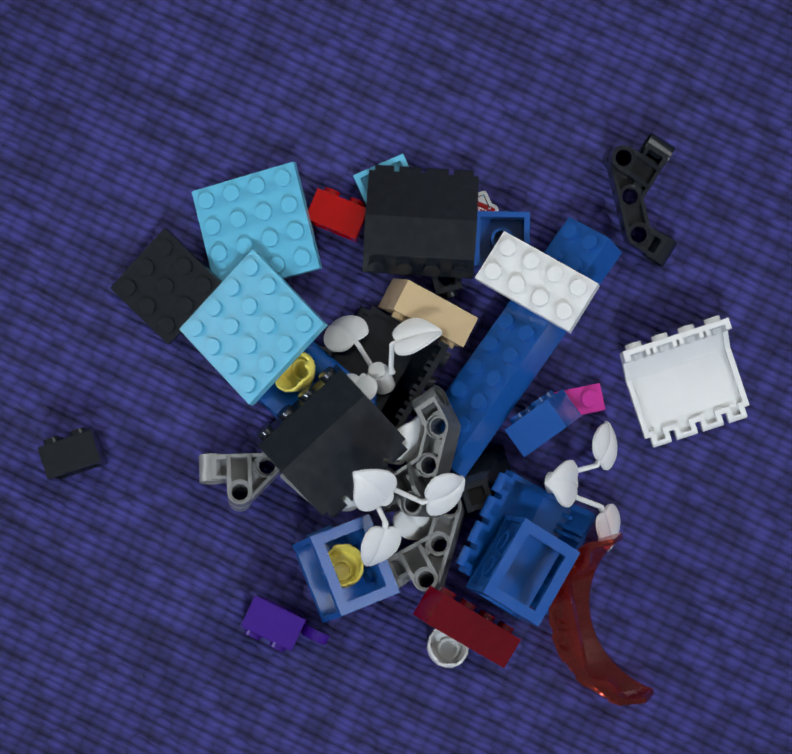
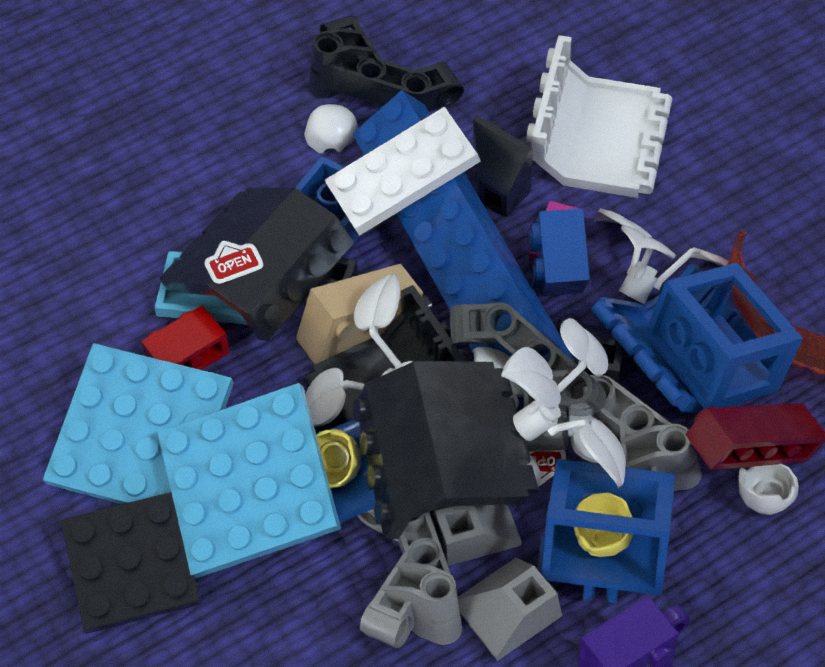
camera: 55 degrees left, 30 degrees down
(271, 530) = (510, 607): none -> light grey slope
(393, 219) = (233, 261): none -> sticker
(575, 193) = (330, 128): none -> white hair
(597, 338) = (504, 168): none -> black slope

